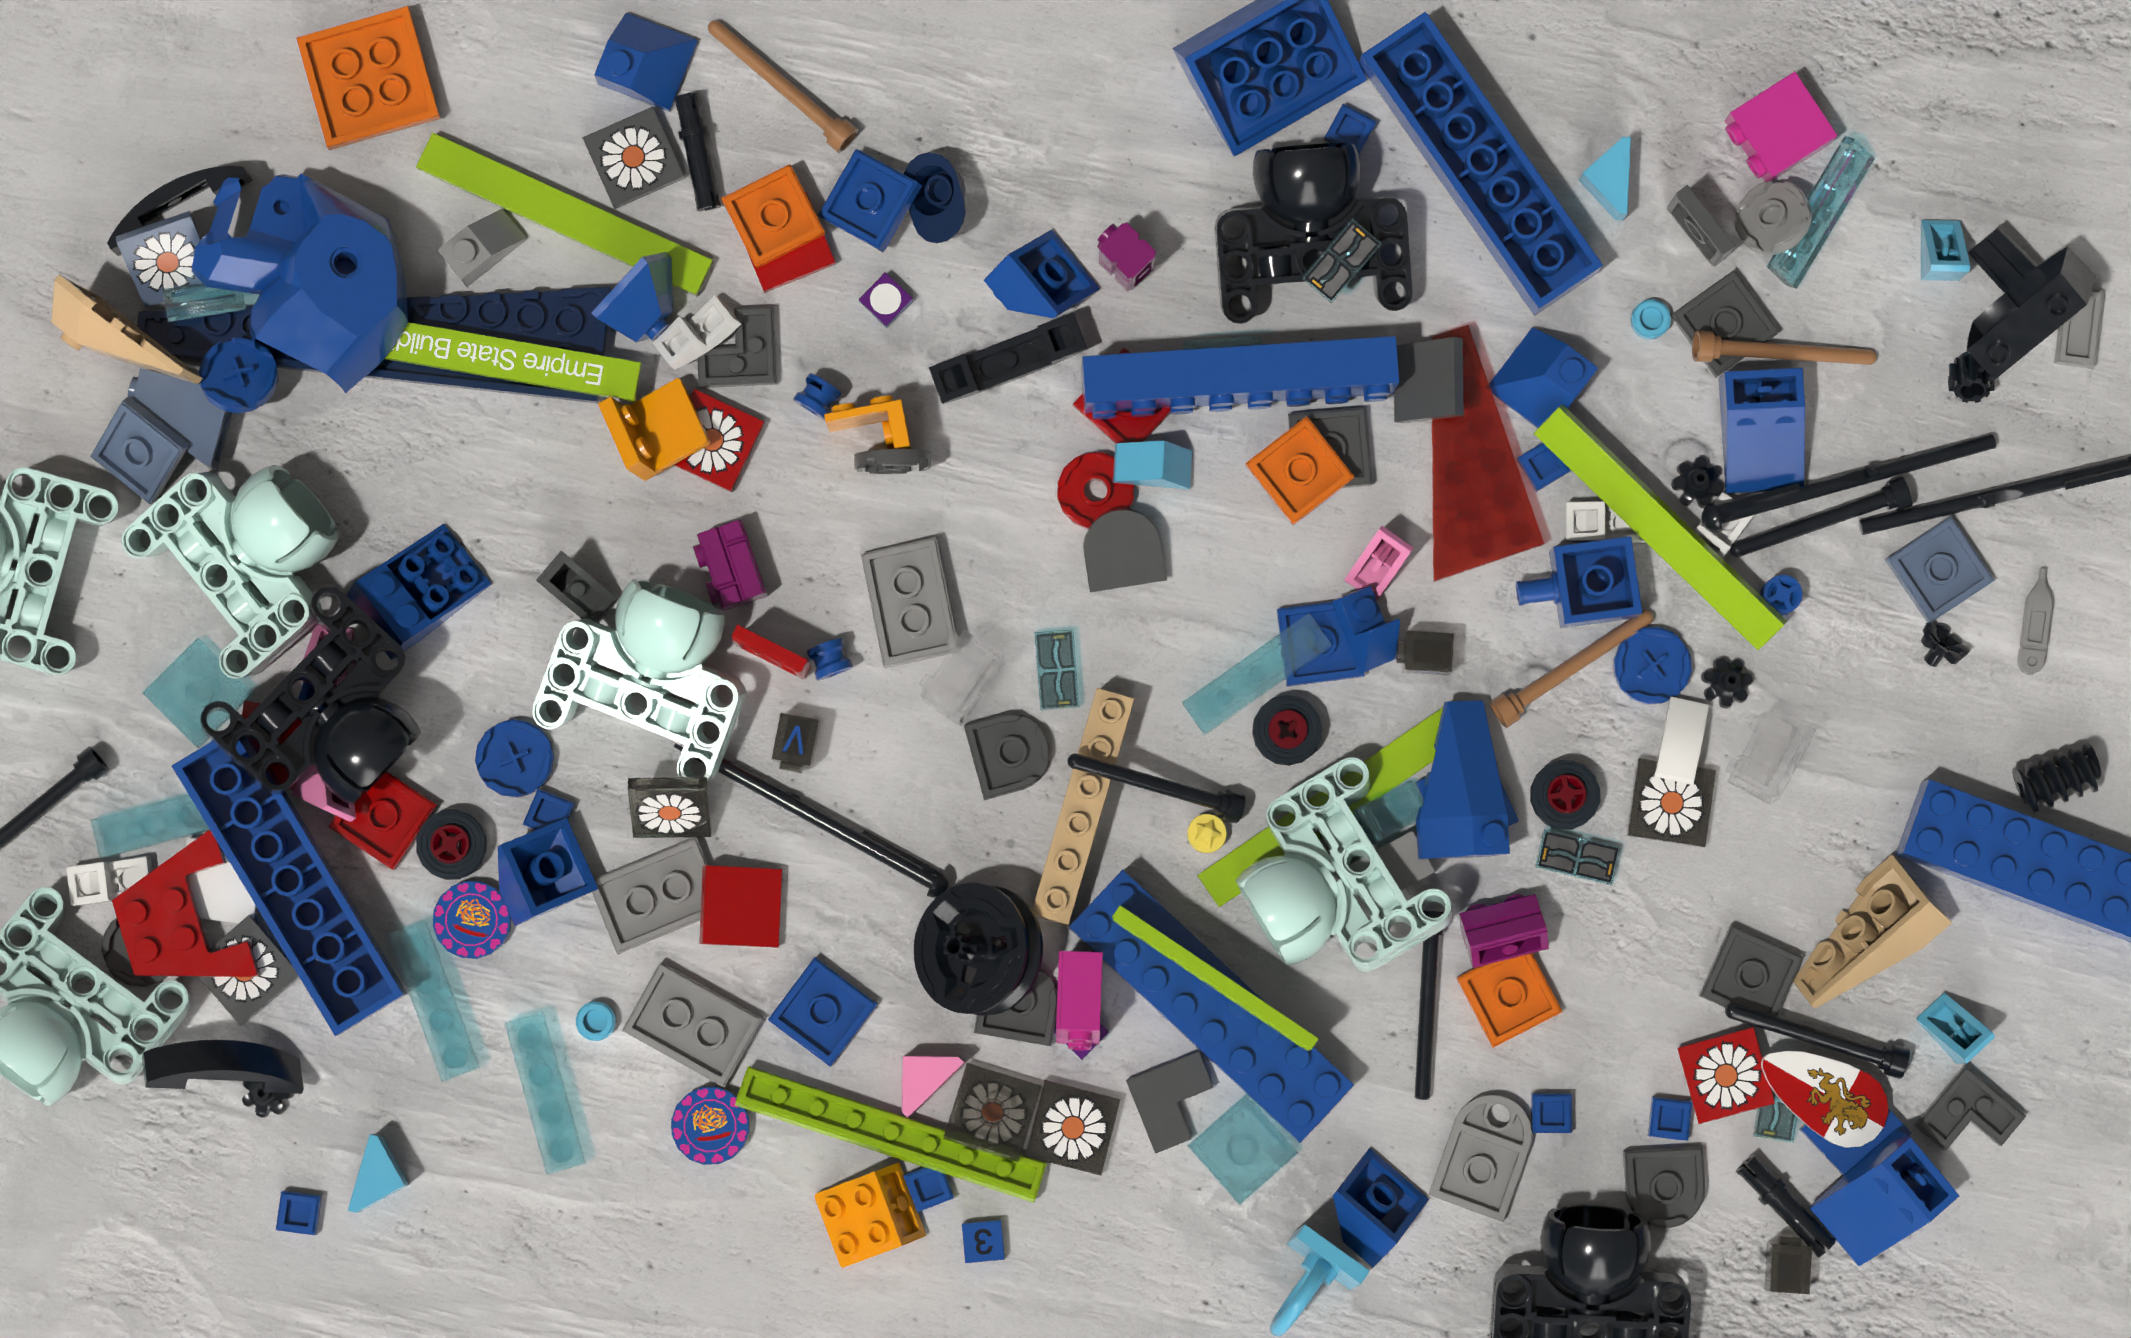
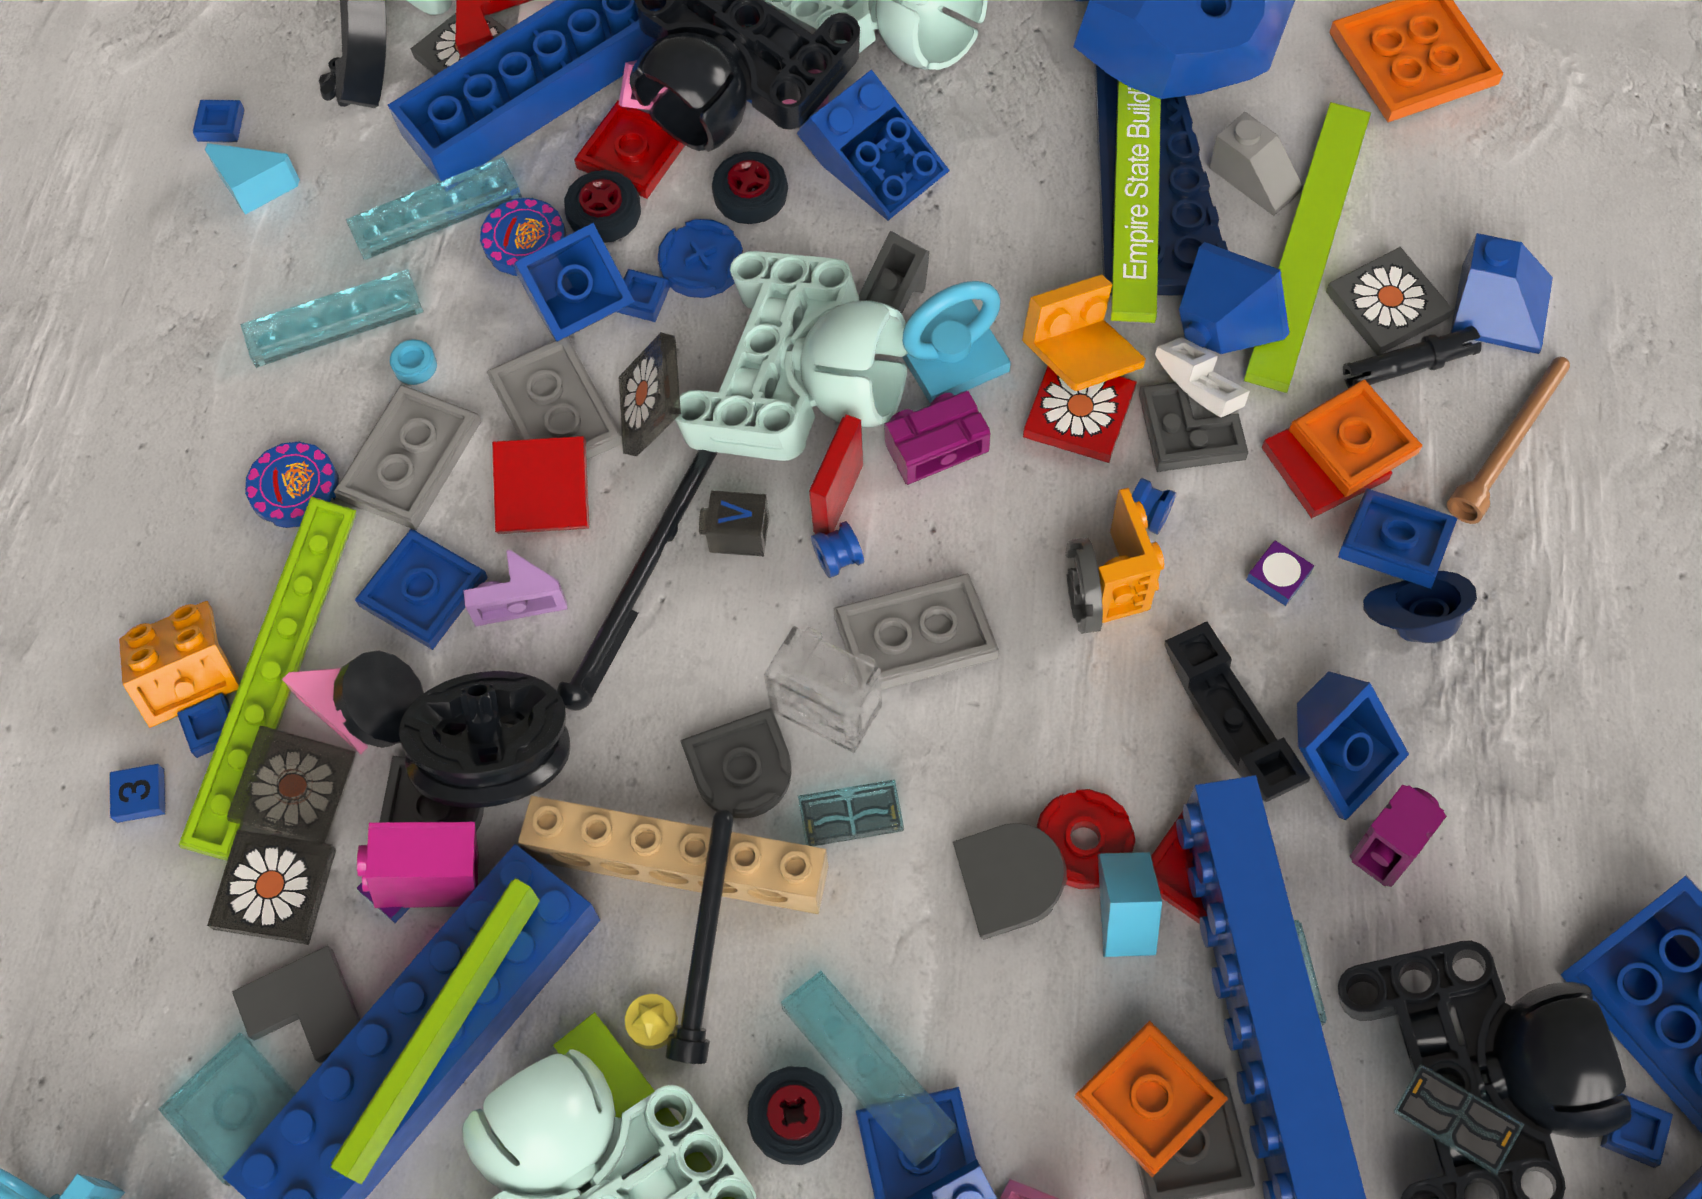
camera: 90 degrees right, 20 degrees down
(434, 701) = (734, 185): none -> black wheel
(639, 542) = (953, 342): none -> medium azure tile
(841, 918) = (526, 594): none -> lavender slope
(930, 1038) = (375, 695): none -> black tile

